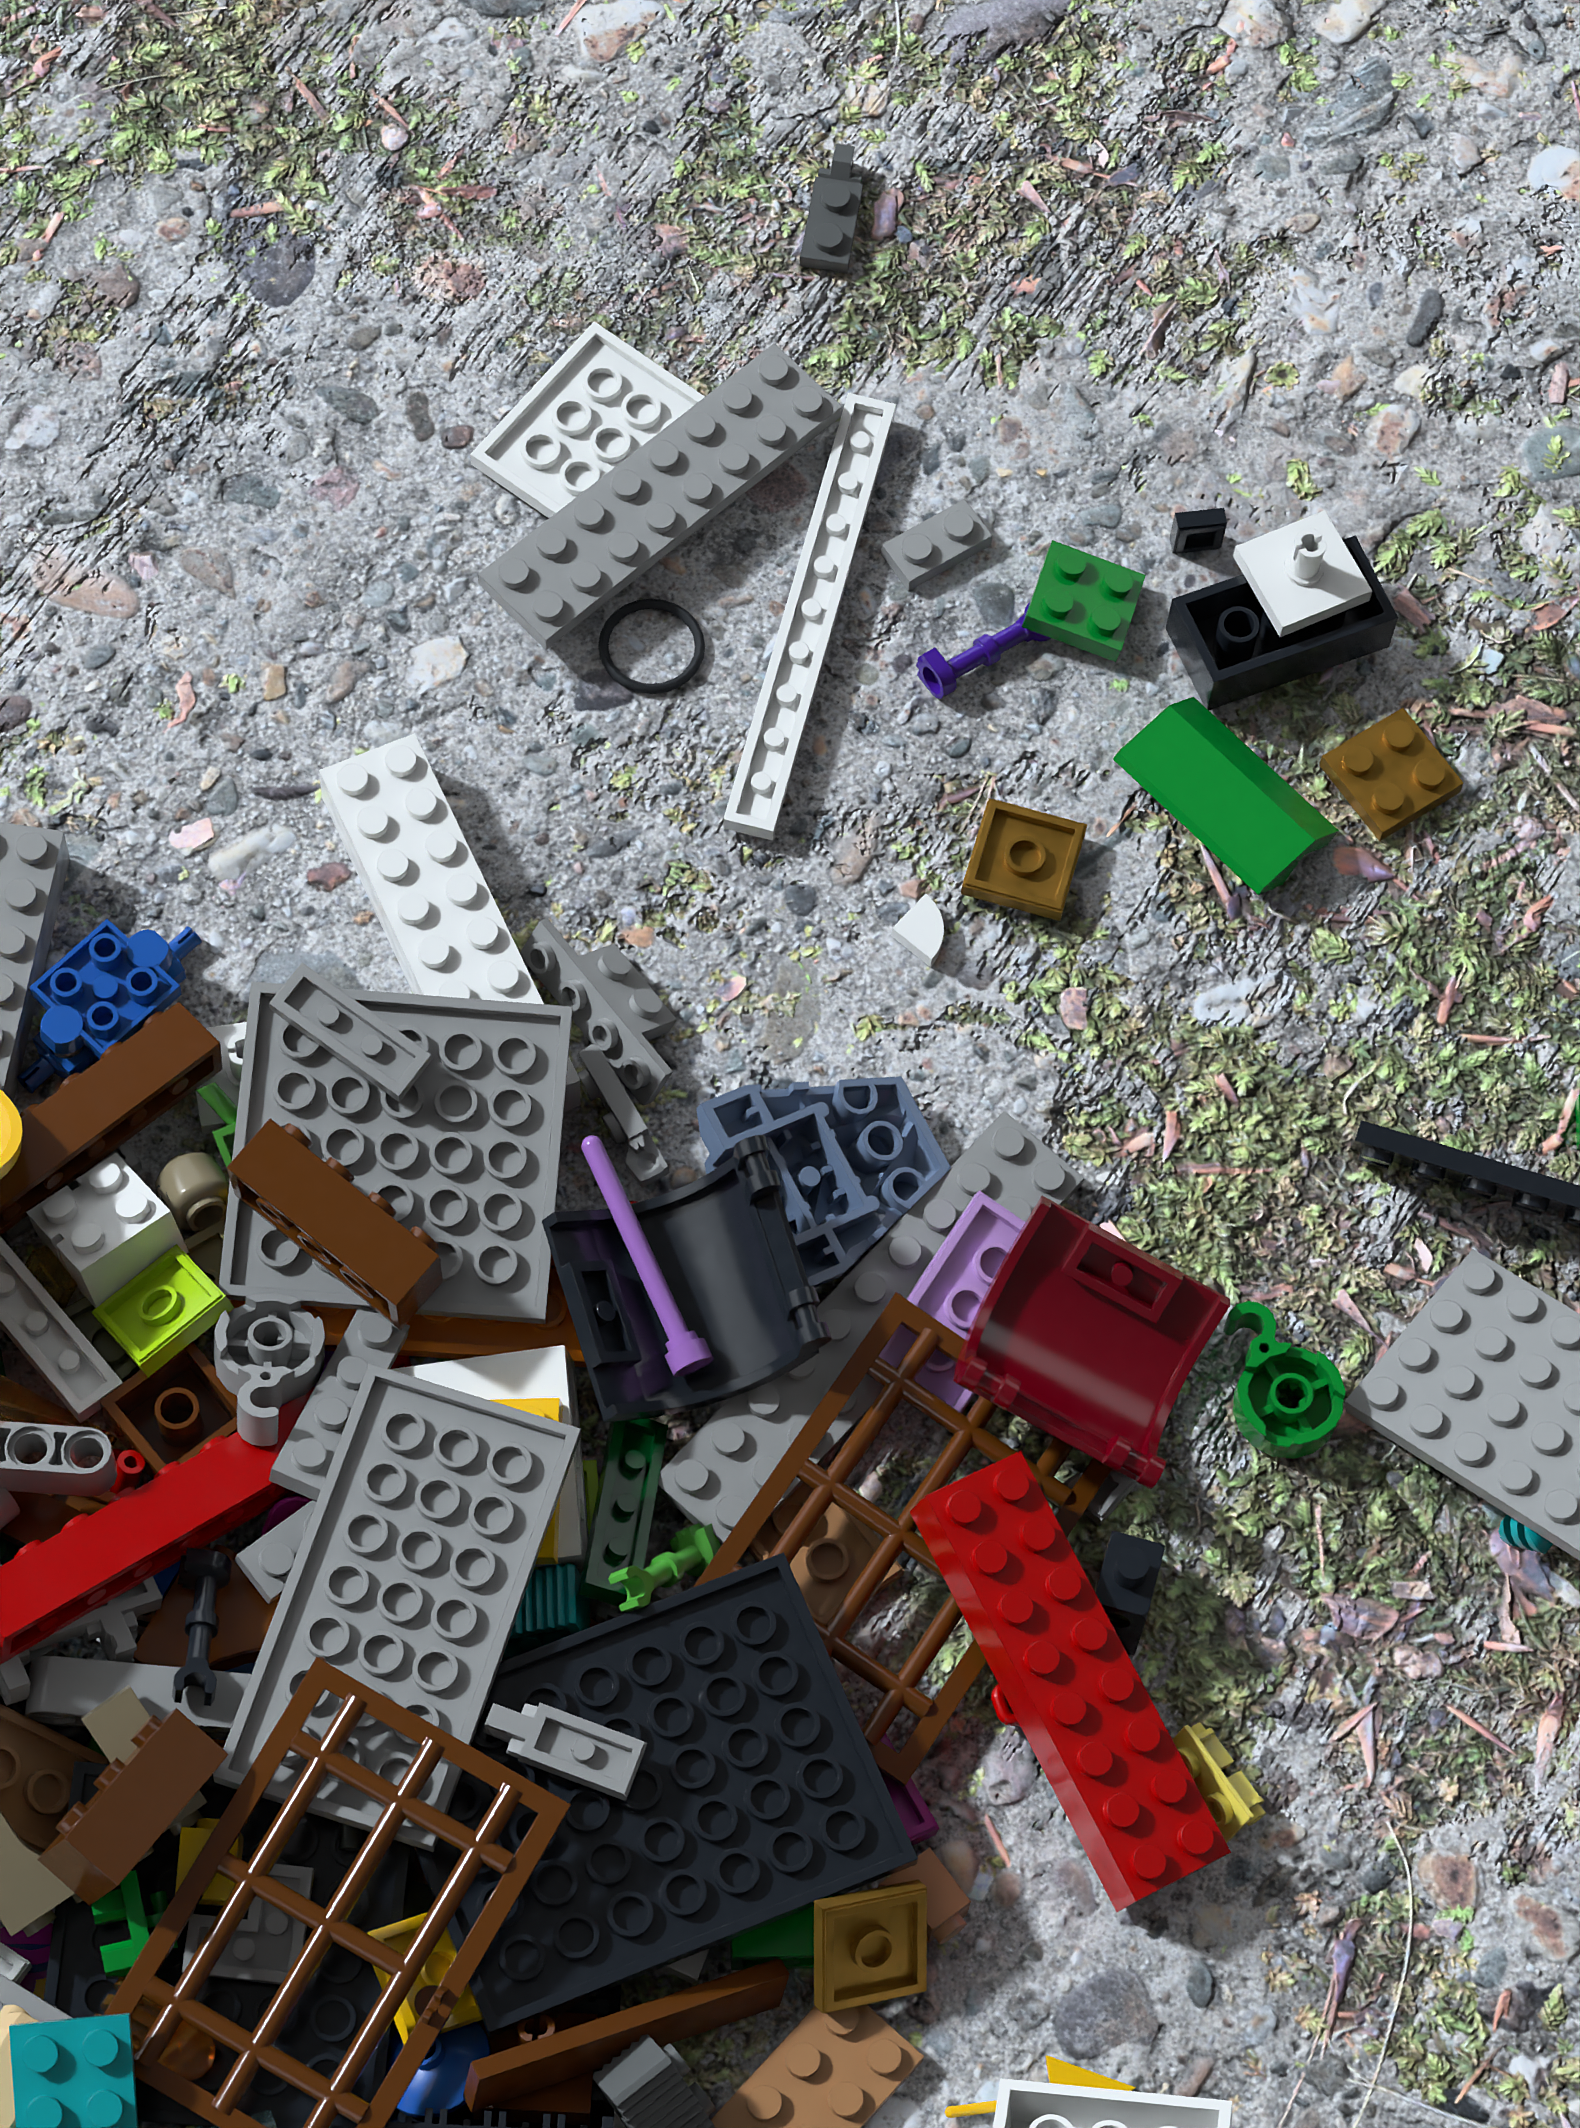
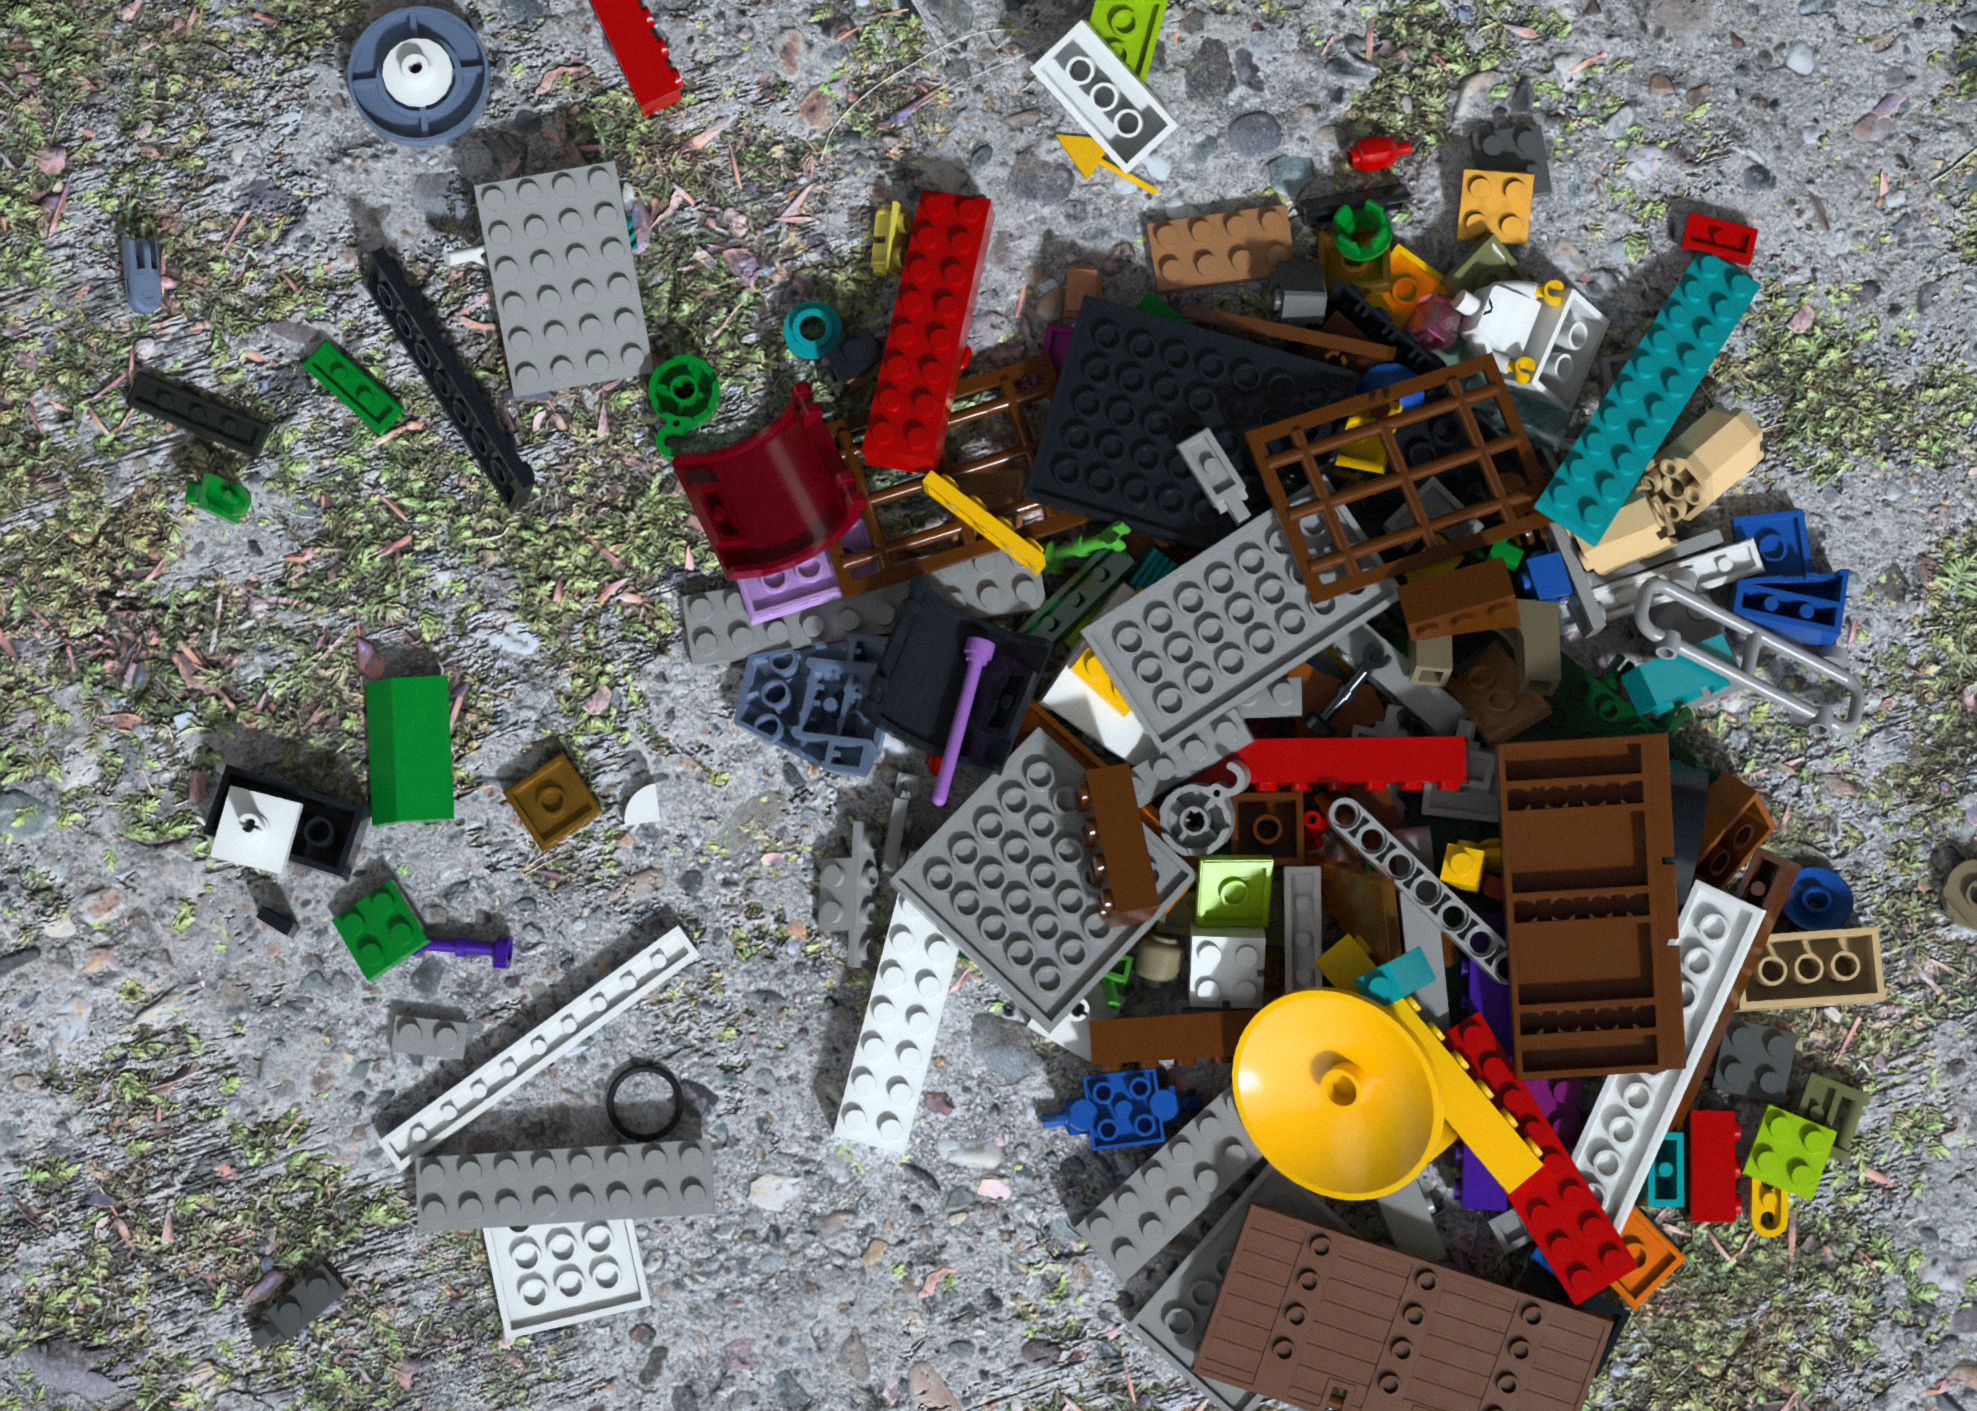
camera: 140 degrees left, 15 degrees up
(55, 1965) = (1544, 577): none -> blue brick
(350, 1032) = (1023, 954): light grey plate -> none
(783, 1488) = (974, 513): none -> yellow plate
(870, 1946) = (1136, 282): pearl gold plate -> none
(1198, 1616) = (812, 349): none -> teal piece
(1391, 774) = (305, 694): pearl gold plate -> none

